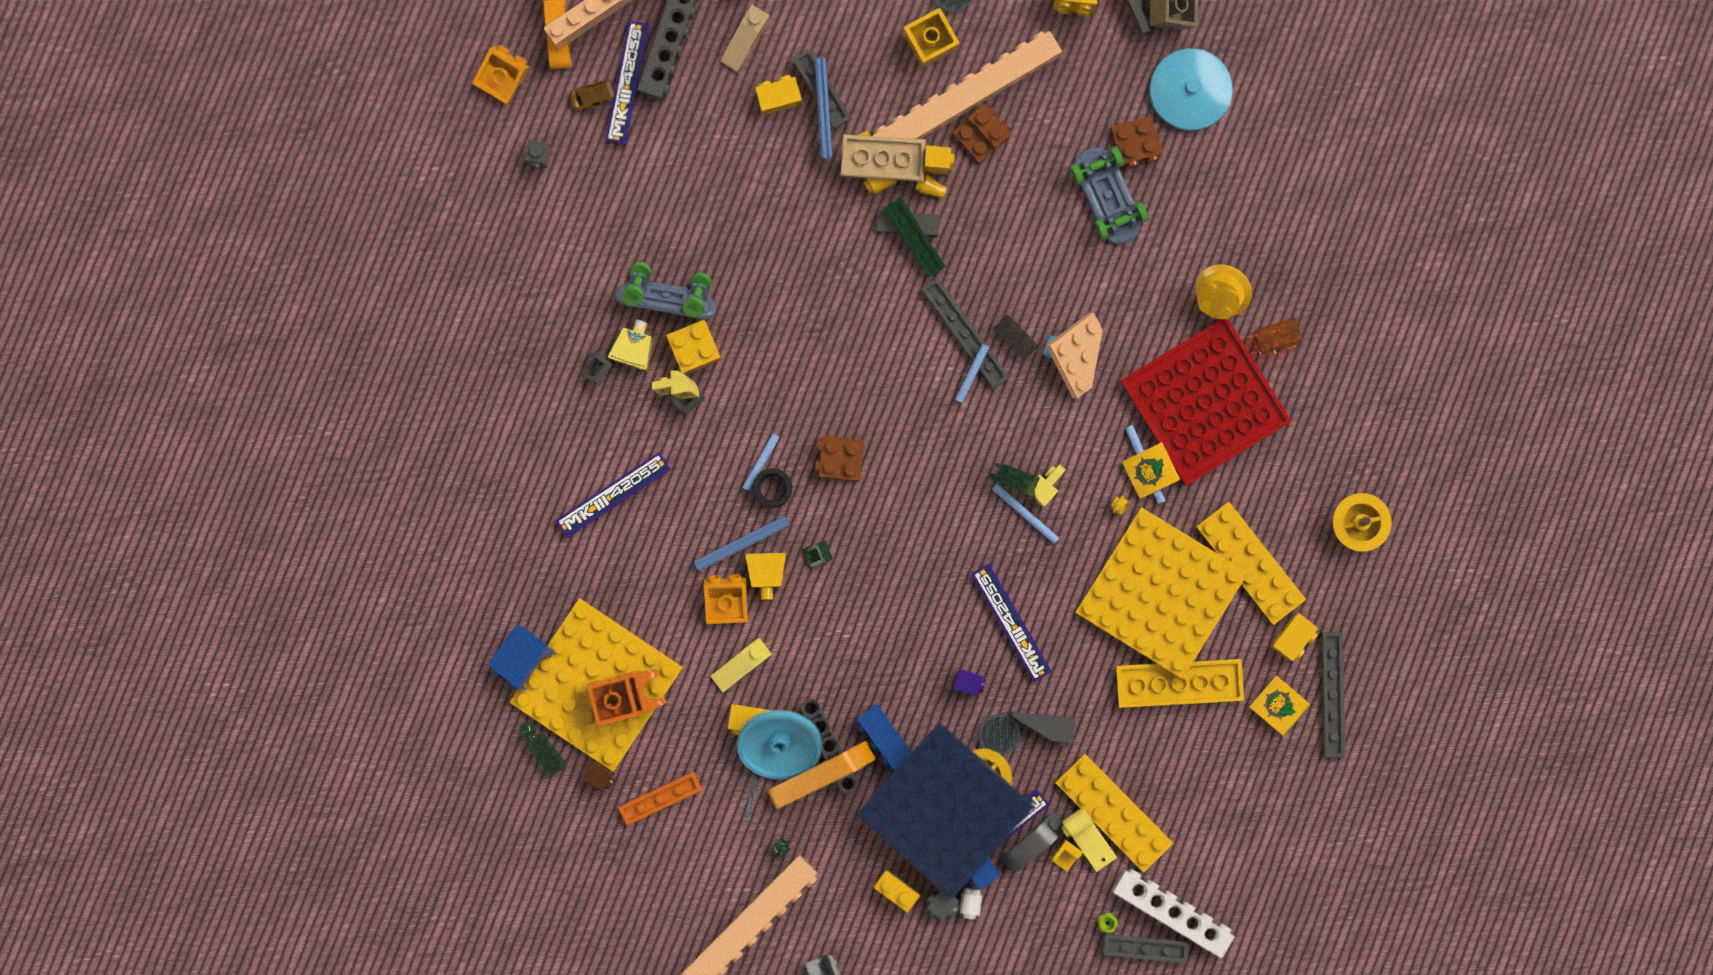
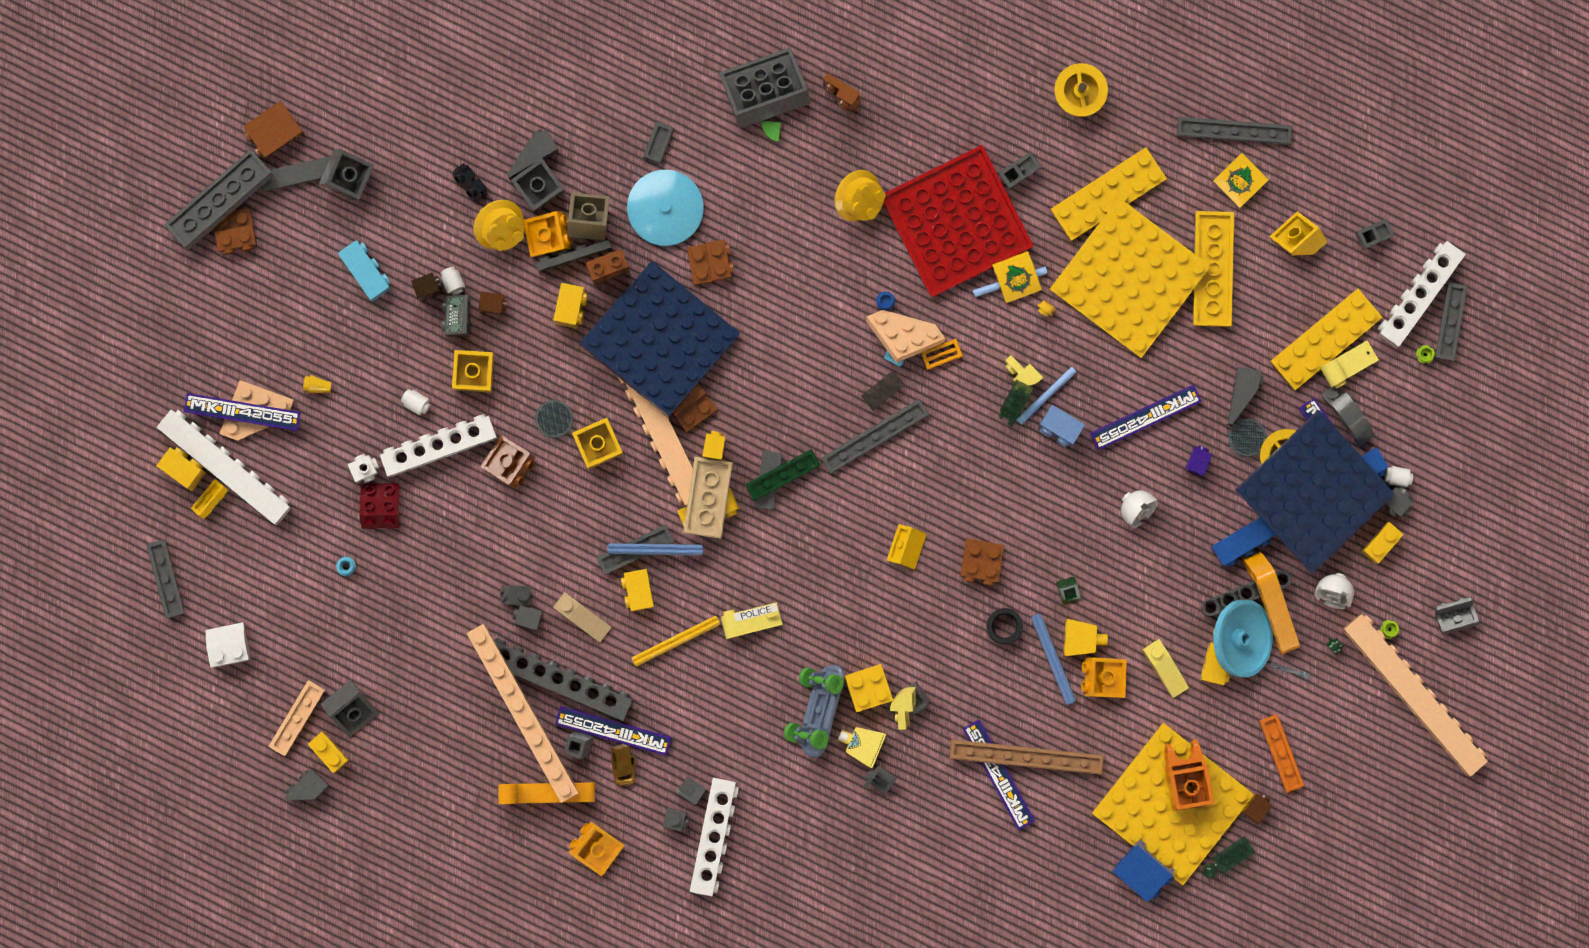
camera: 90 degrees left, 0 degrees up
(471, 185) = (718, 787): none -> white brick
(569, 169) = (691, 790): none -> dark grey panel
(608, 45) = (578, 745): none -> dark grey brick
(633, 522) = (1026, 757): none -> medium nougat tile
(728, 140) = (675, 641): none -> yellow axle
(756, 217) = (750, 620): none -> light yellow door
(761, 461) = (979, 635): light blue bar -> none
(803, 911) = (1394, 629): none -> lime plate
(840, 843) = (1335, 590): none -> white cylinder
(849, 376) = (906, 546): none -> yellow panel
(913, 620) = (1137, 506): none -> white cylinder
(930, 187) = (737, 456): yellow cone -> none
(972, 373) = (912, 432): light blue bar -> none
(993, 529) = (1060, 426): none -> medium blue brick
(1049, 93) = (659, 339): none -> dark blue plate
(1066, 855) = (1361, 386): yellow panel -> none
(1067, 413) = (926, 360): none -> light orange tile
(1108, 194) = (757, 292): sand blue piece -> none
(1112, 332) = (885, 301): none -> blue plate
(1121, 30) = (607, 267): none -> dark orange panel
(1224, 774) = (1299, 236): none -> yellow slope
(1234, 856) = (1374, 234): none -> dark grey brick
(1260, 76) = (658, 142): none -> dark grey tile
(1267, 464) = (1020, 170): none -> dark grey brick
(1278, 336) = (903, 150): clear orange brick -> none
(1286, 195) = (771, 129): none -> bright green tile
(1295, 637) = (1179, 160): yellow brick -> none
(1330, 183) = (765, 88): none -> dark grey slope
(1330, 269) = (846, 95): none -> dark orange plate

